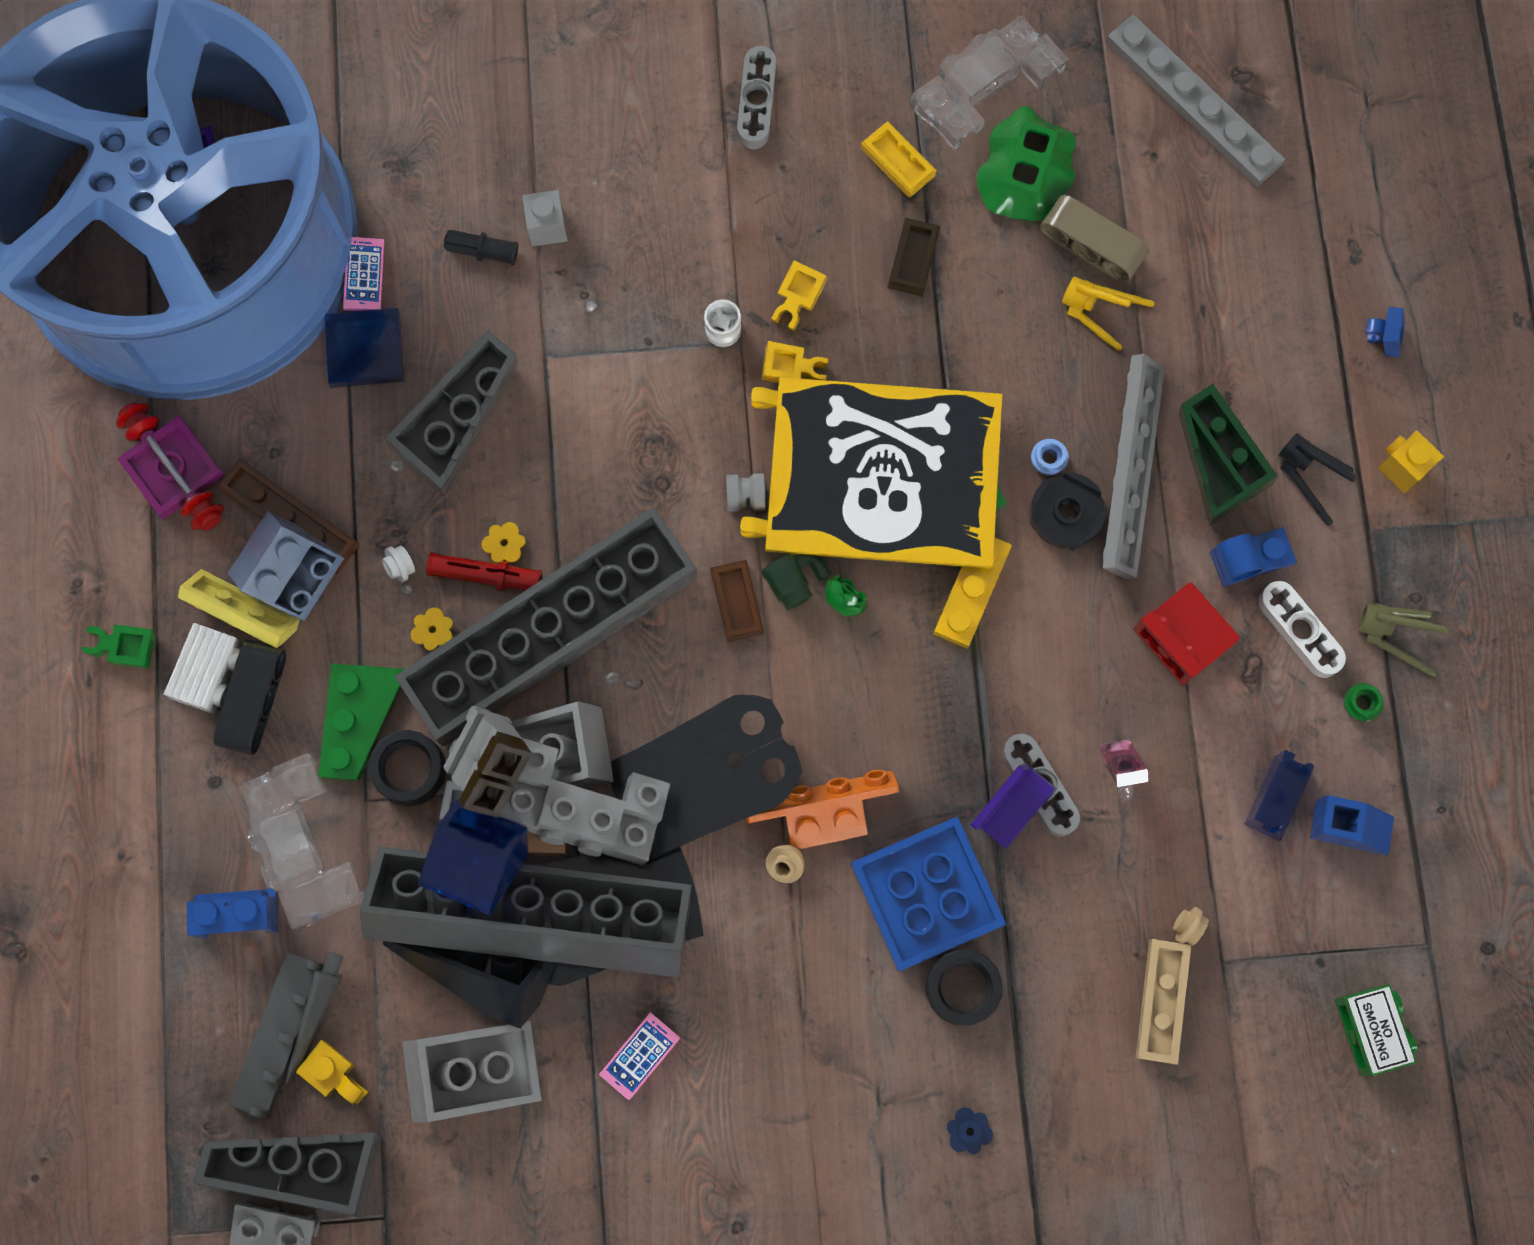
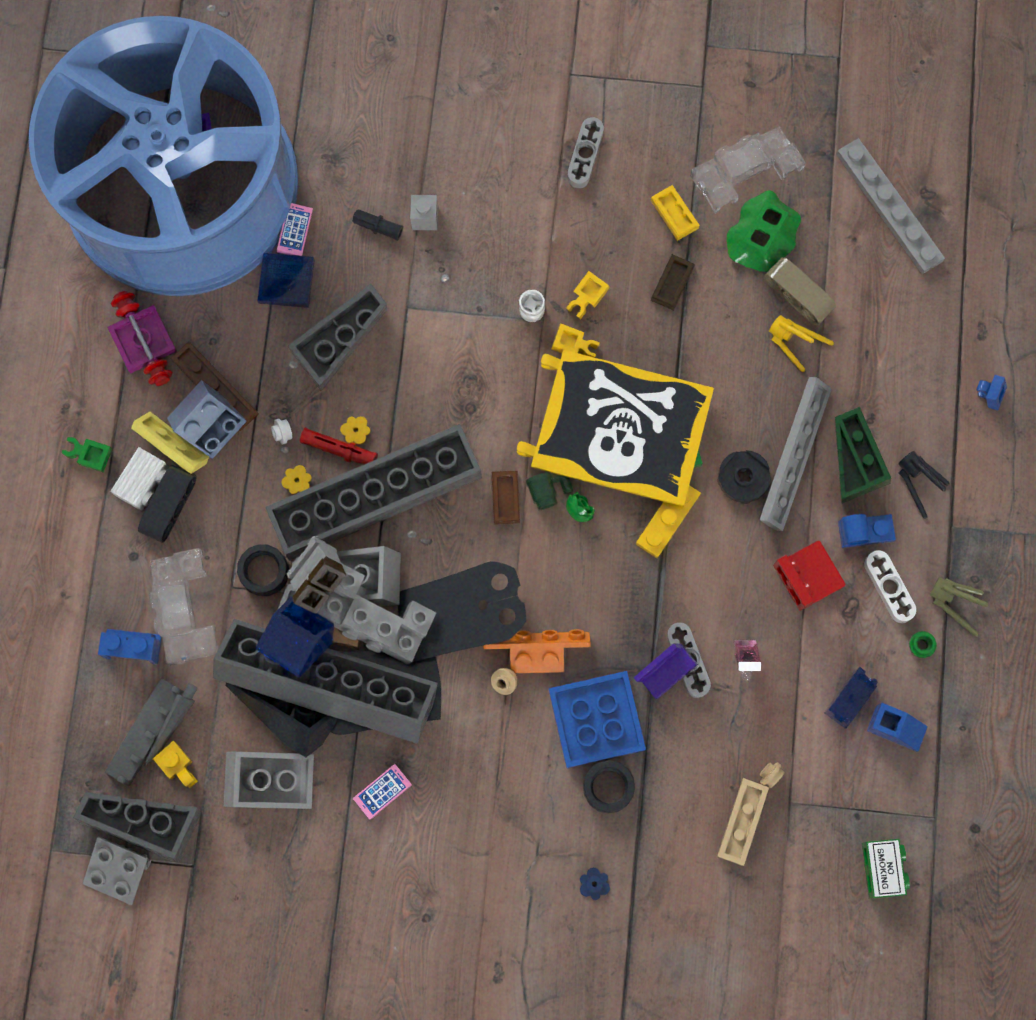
camera: 15 degrees right, 0 degrees up
(354, 717) = (235, 527): green wing -> none
(745, 492) = (525, 424): light grey wheel -> none
(1053, 447) = (742, 430): light blue plate -> none
(1409, 460) = (988, 483): yellow brick -> none

